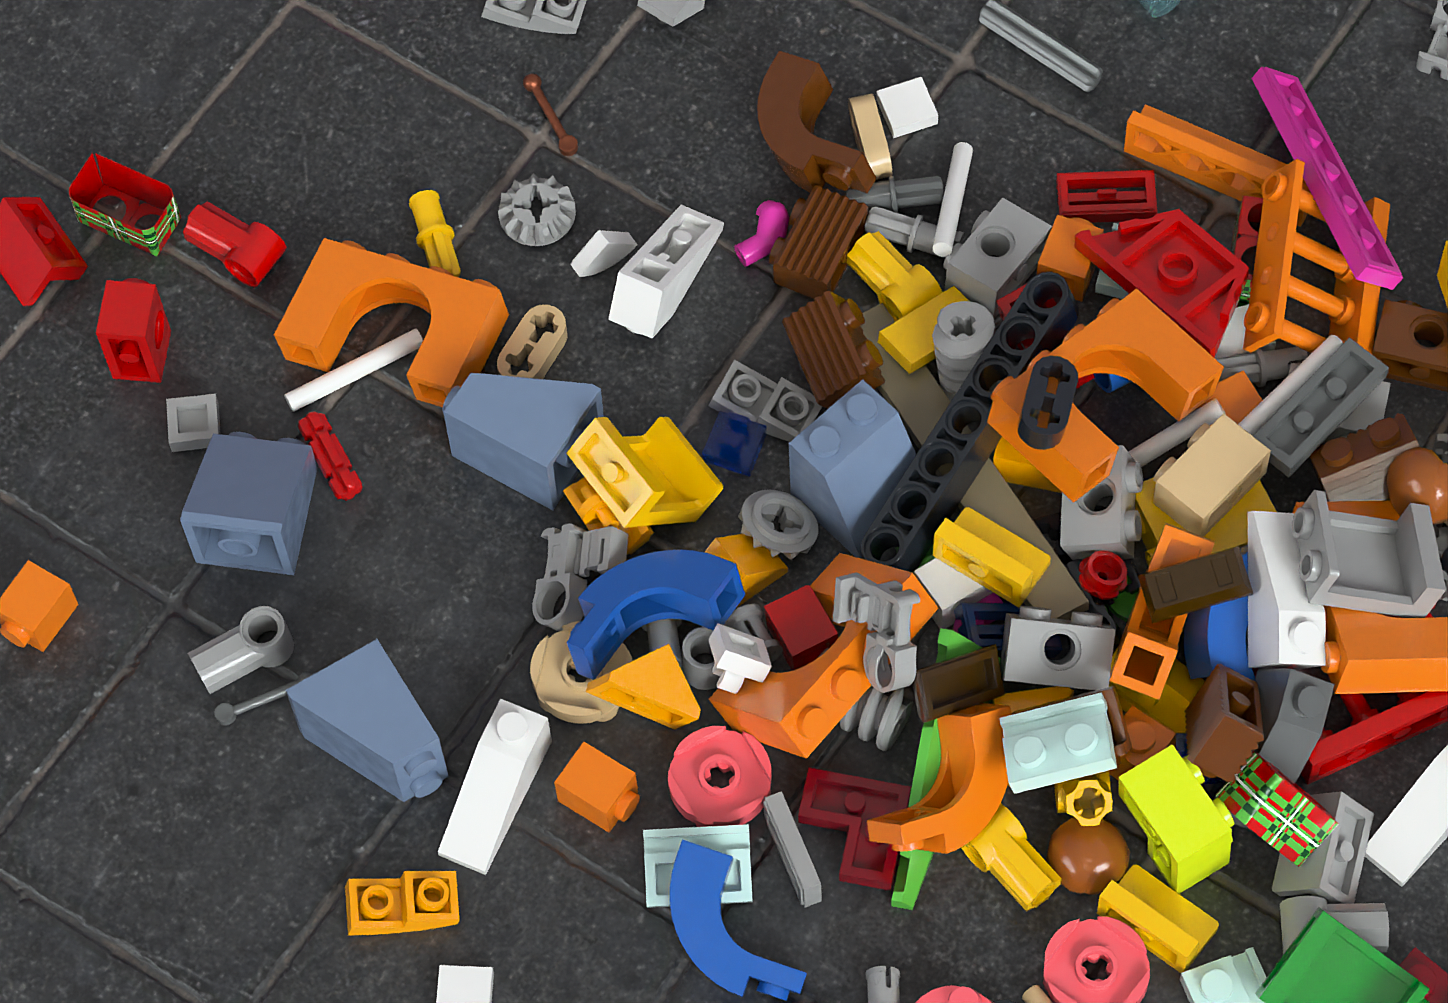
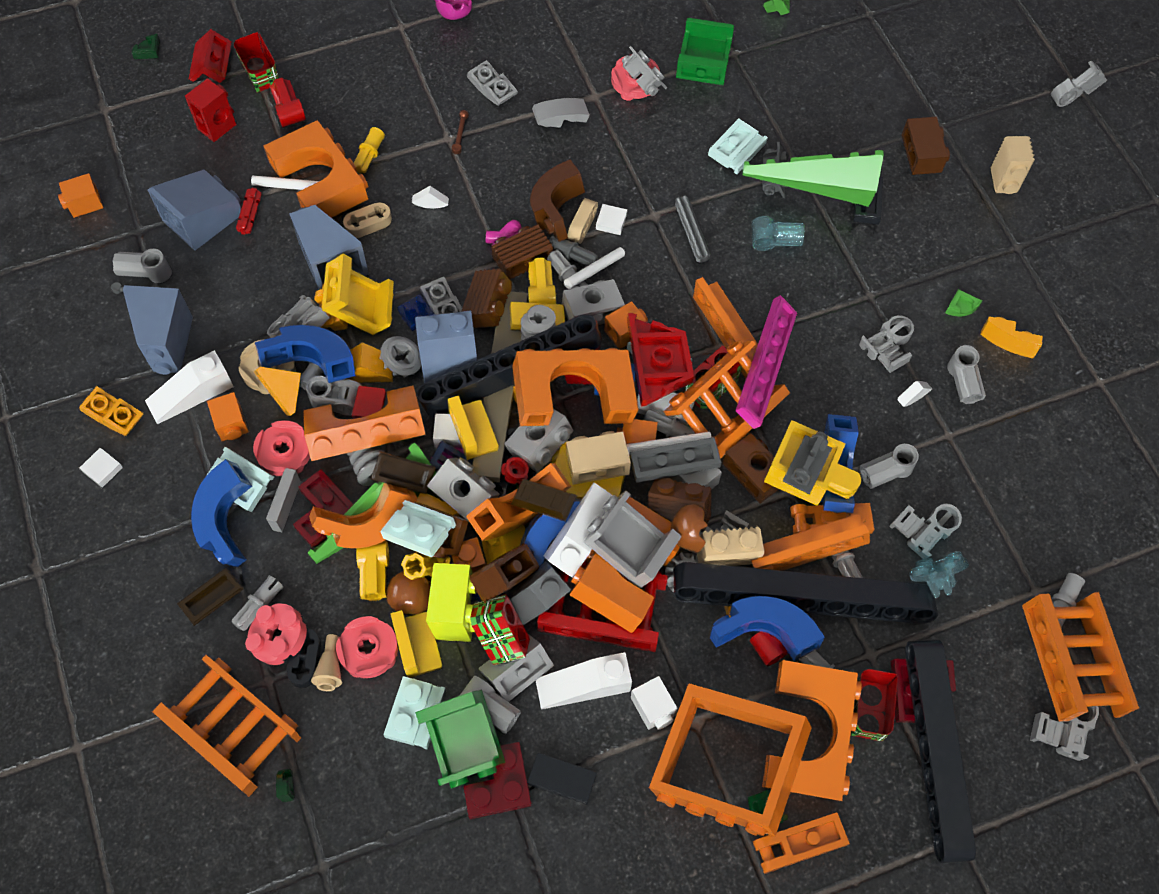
camera: 30 degrees right, 0 degrees up
(192, 421) = (208, 161): light grey plate -> none
(555, 218) = (423, 173): light grey gear -> none
(662, 271) = (444, 221): white slope -> none
(737, 657) = (323, 397): white tile -> none
(889, 613) = (387, 412): light grey piece -> none
(1039, 400) = (538, 374): black beam -> none
(1107, 204) = (665, 314): red tile -> none
(1176, 433) = (596, 430): white bar -> none

